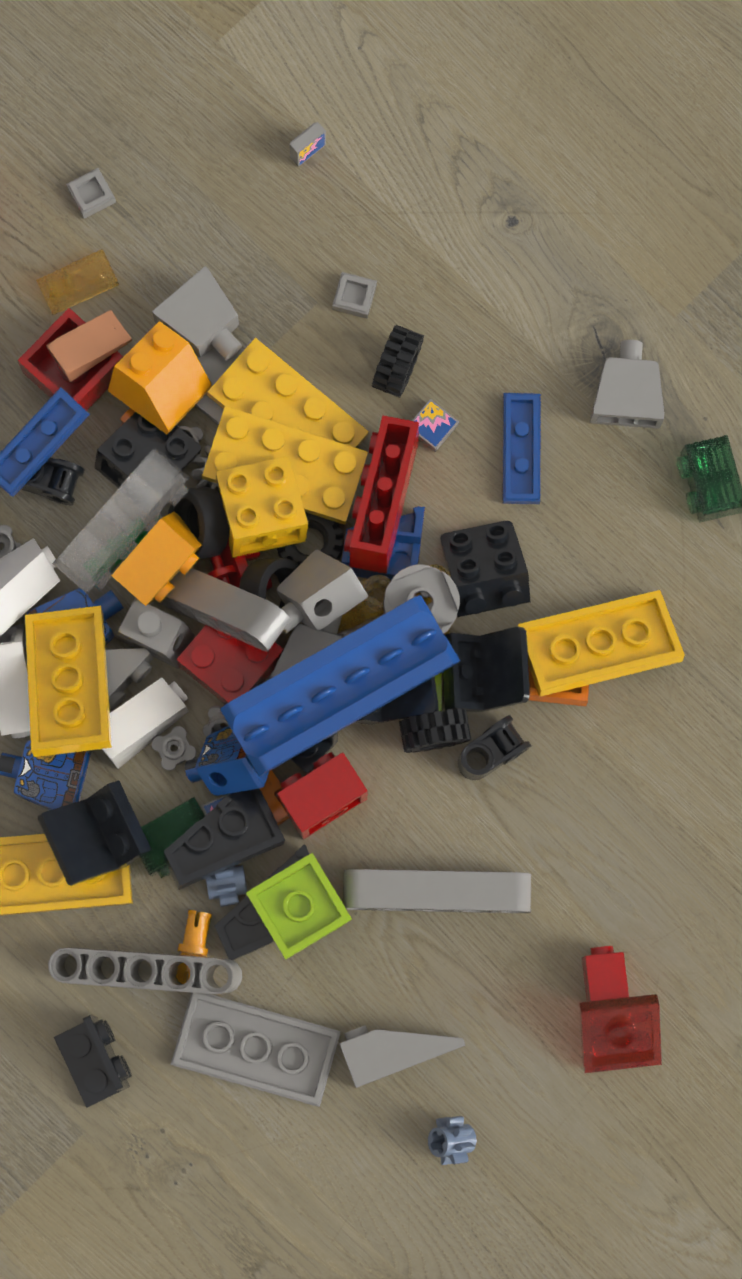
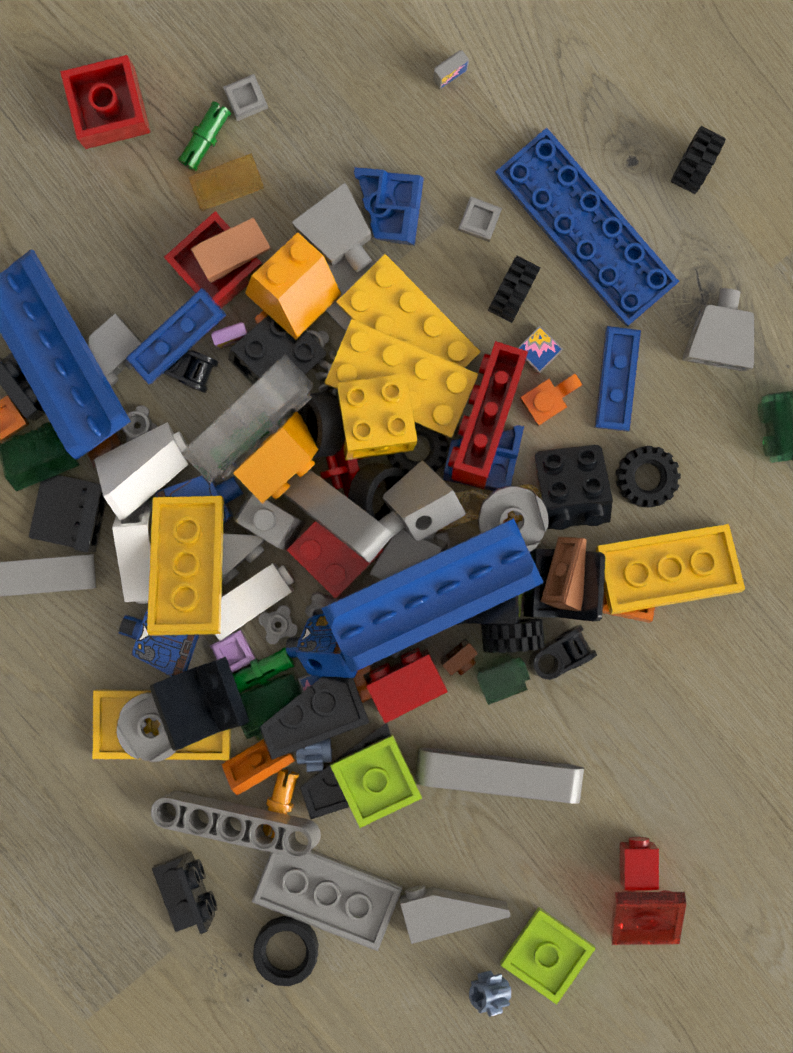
camera: 10 degrees right, 10 degrees up
(20, 866) = (131, 732): none -> light grey plate
(49, 236) = (204, 136): none -> green pin
(92, 439) = (229, 335): none -> lavender tile
(131, 781) = (235, 649): none -> lavender tile
(162, 906) = (253, 767): none -> orange plate
(165, 797) = (262, 670): none -> green pin
(187, 1129) = (272, 973): none -> black tyre
(258, 287) = (392, 203): none -> blue slope
(379, 760) = (460, 658): none -> reddish brown plate
(427, 777) = (502, 678): none -> clear green brick
(447, 478) = (547, 400): none -> orange plate
(470, 293) = (586, 227): none -> blue plate
(487, 660) = (566, 575): none -> nougat slope
(513, 1091) = (547, 955): none -> lime plate
(576, 528) = (668, 476): none -> black tyre
(579, 210) = (698, 160): none -> black tyre

